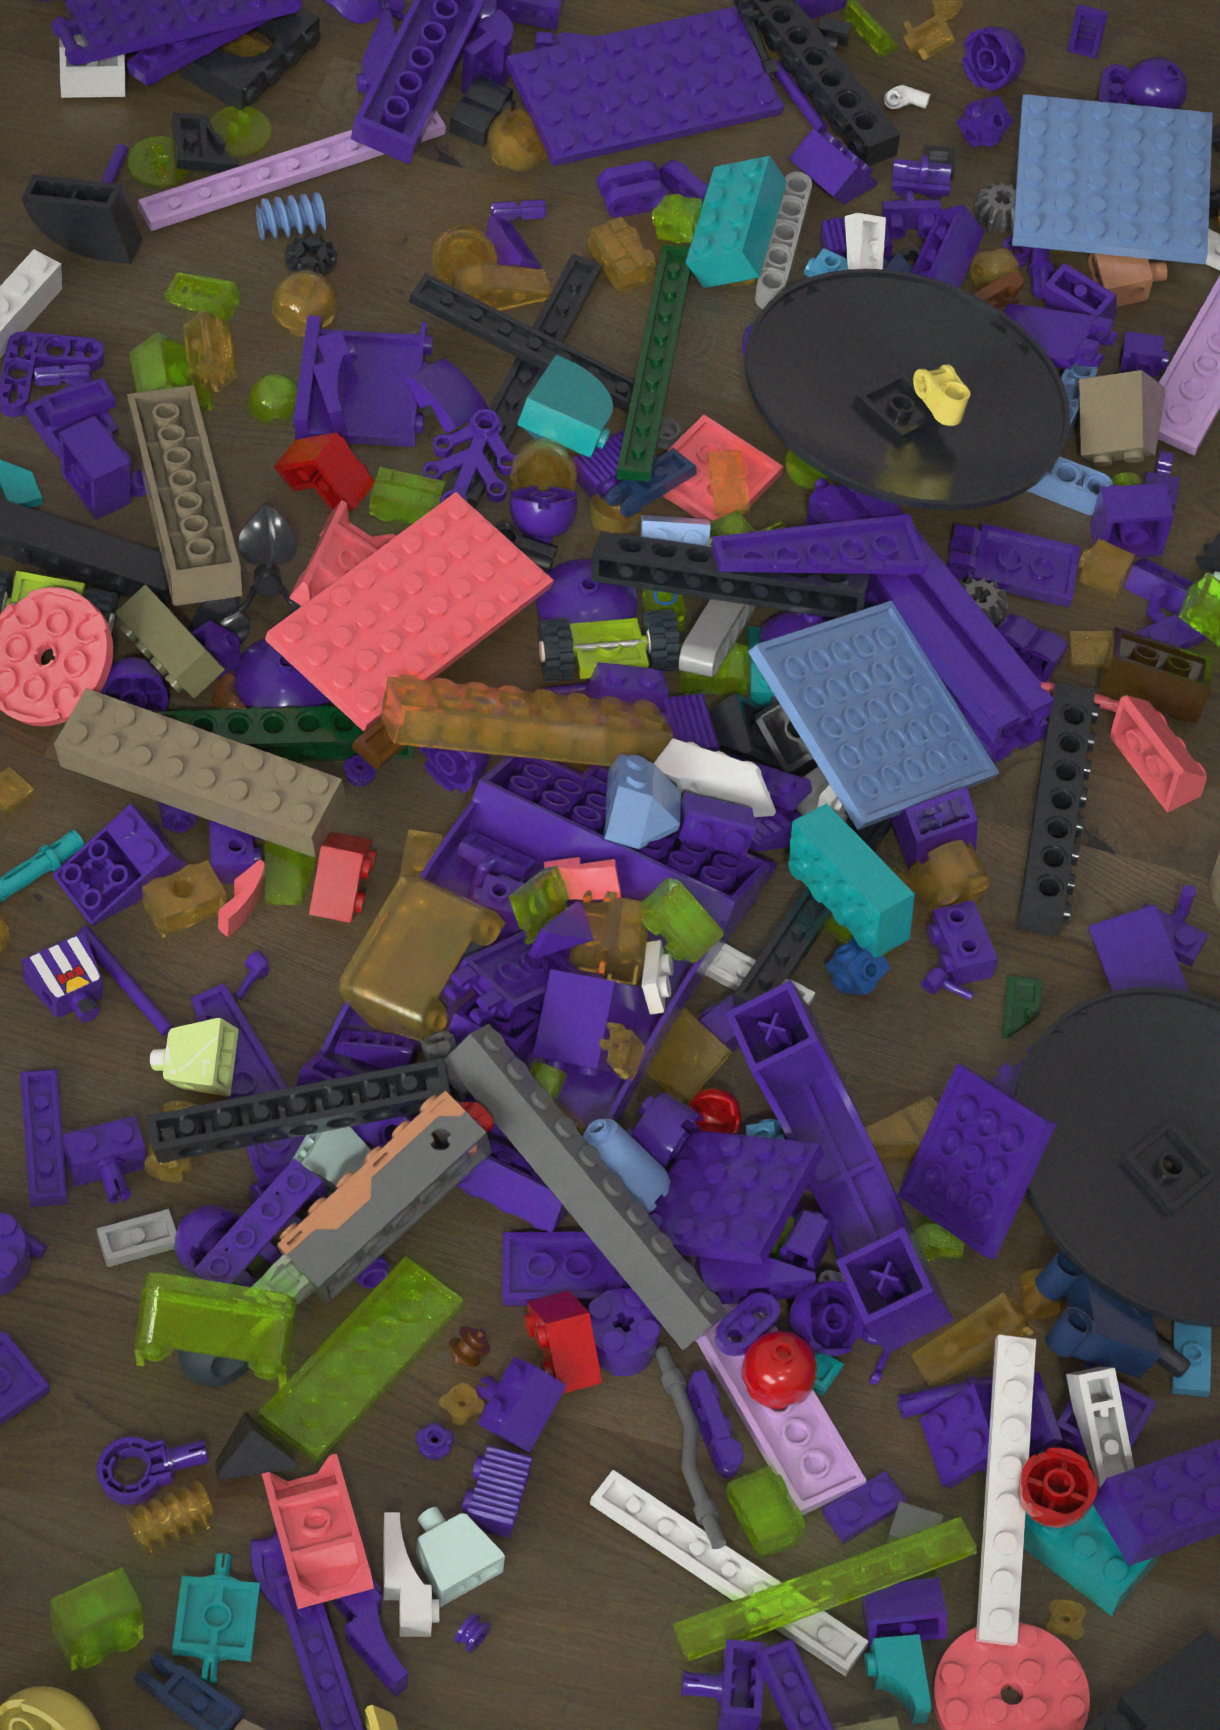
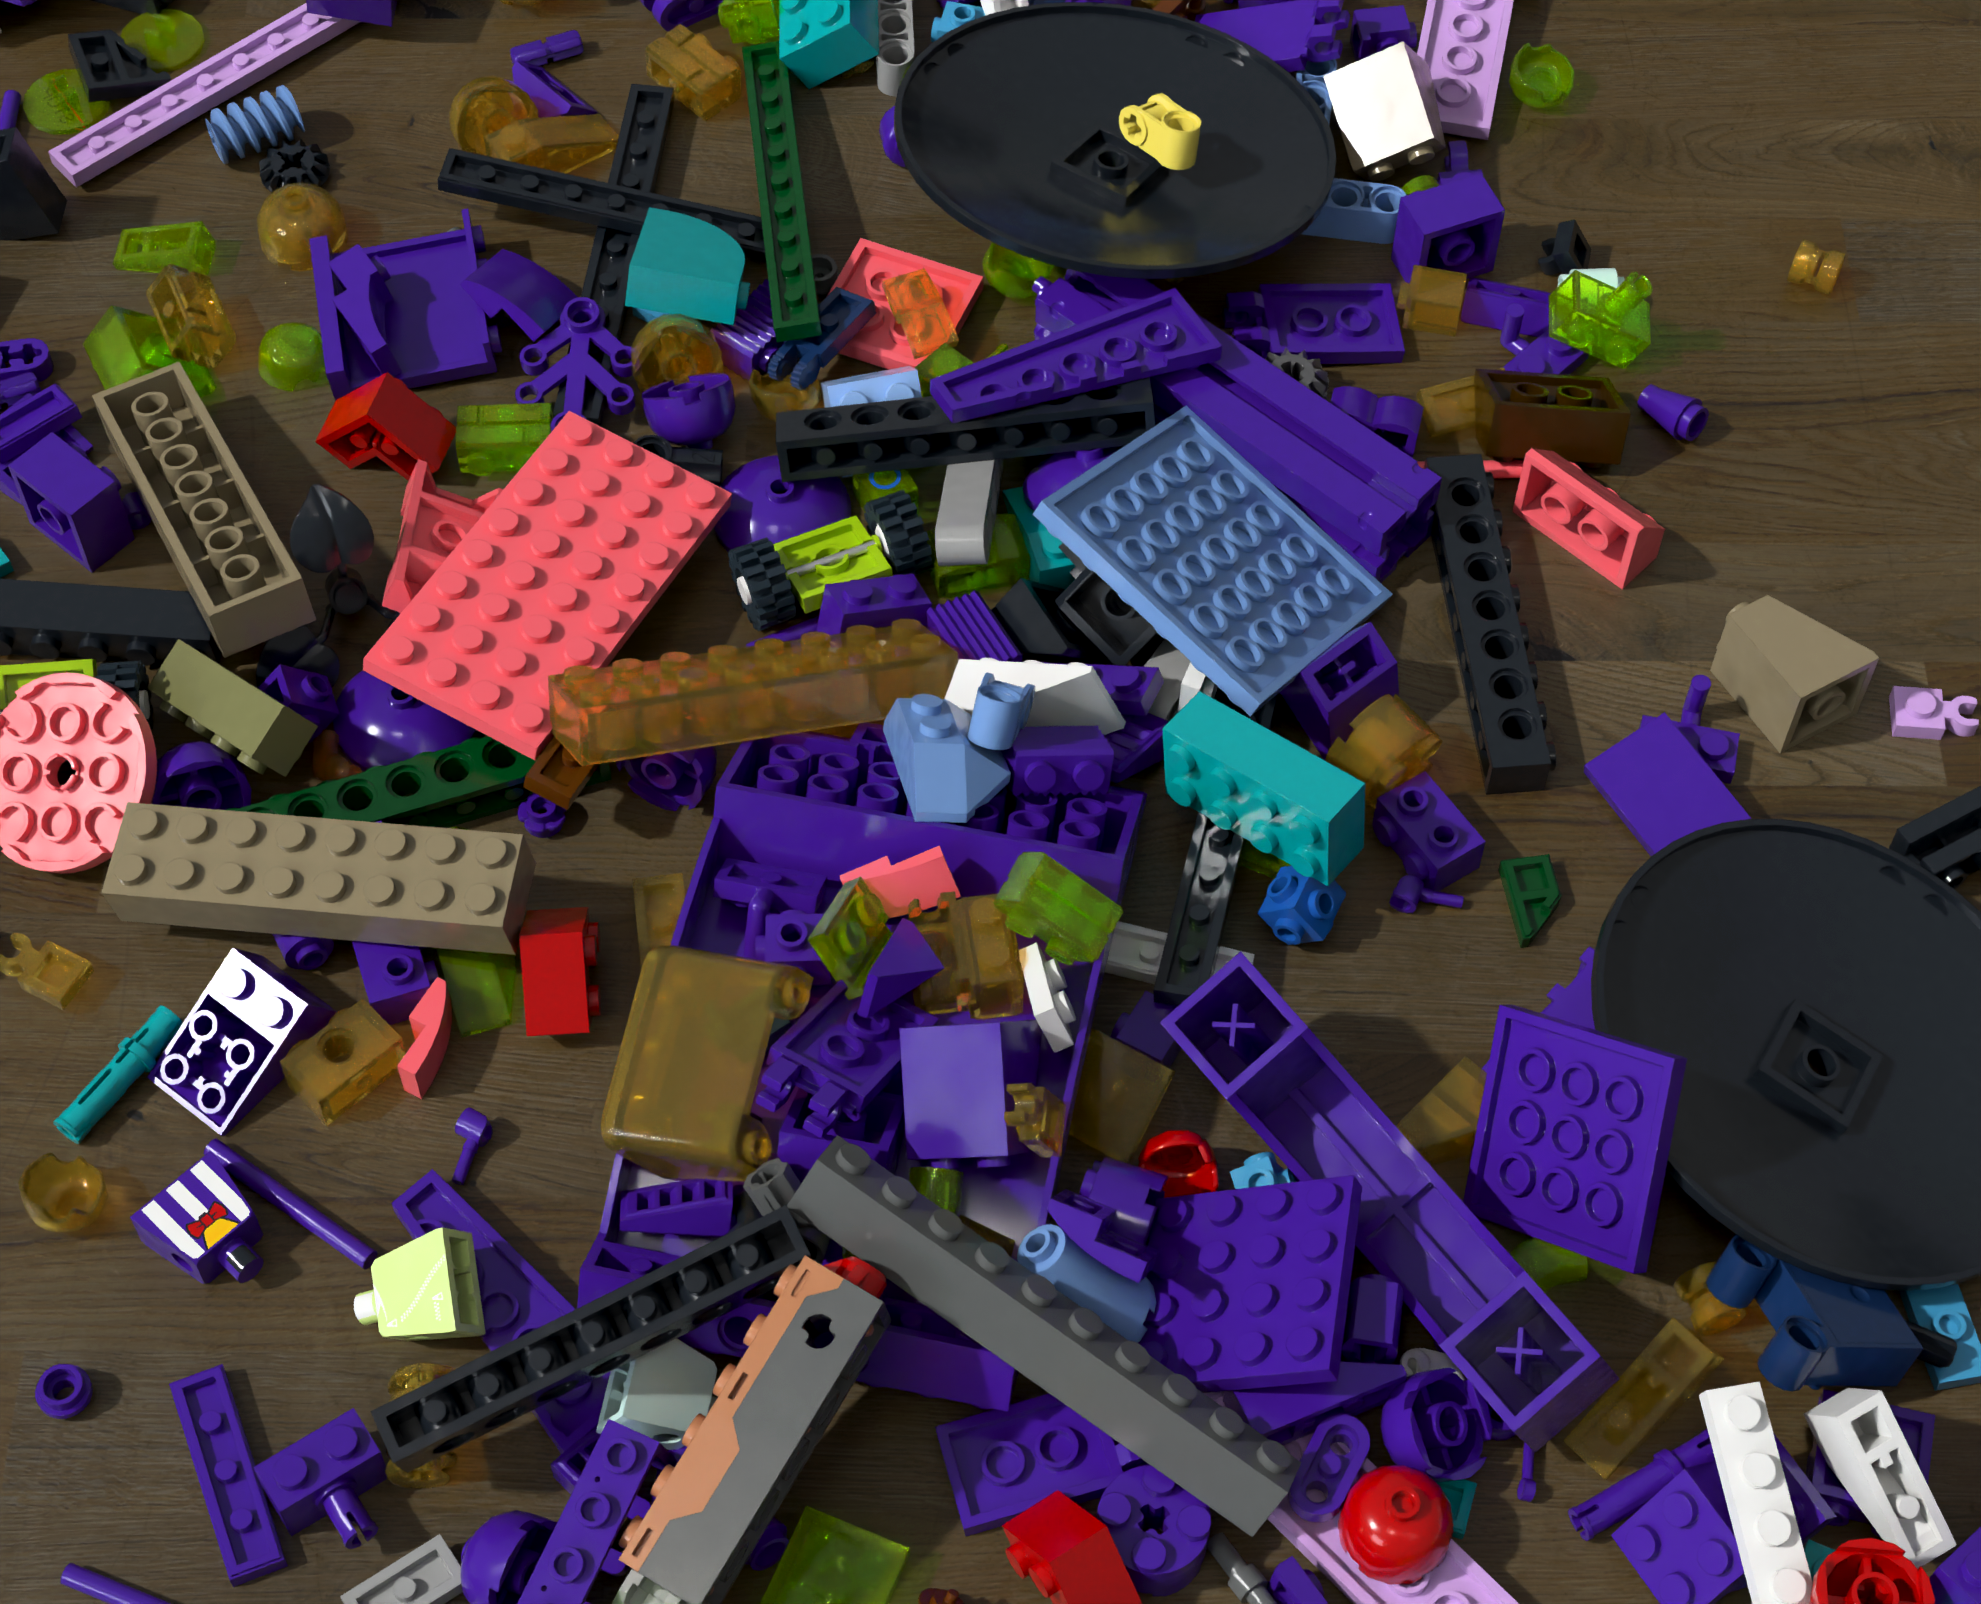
camera: 10 degrees left, 0 degrees up
(638, 1130) = (1088, 1226): none -> dark purple slope
(685, 781) = (999, 713): none -> medium blue piece

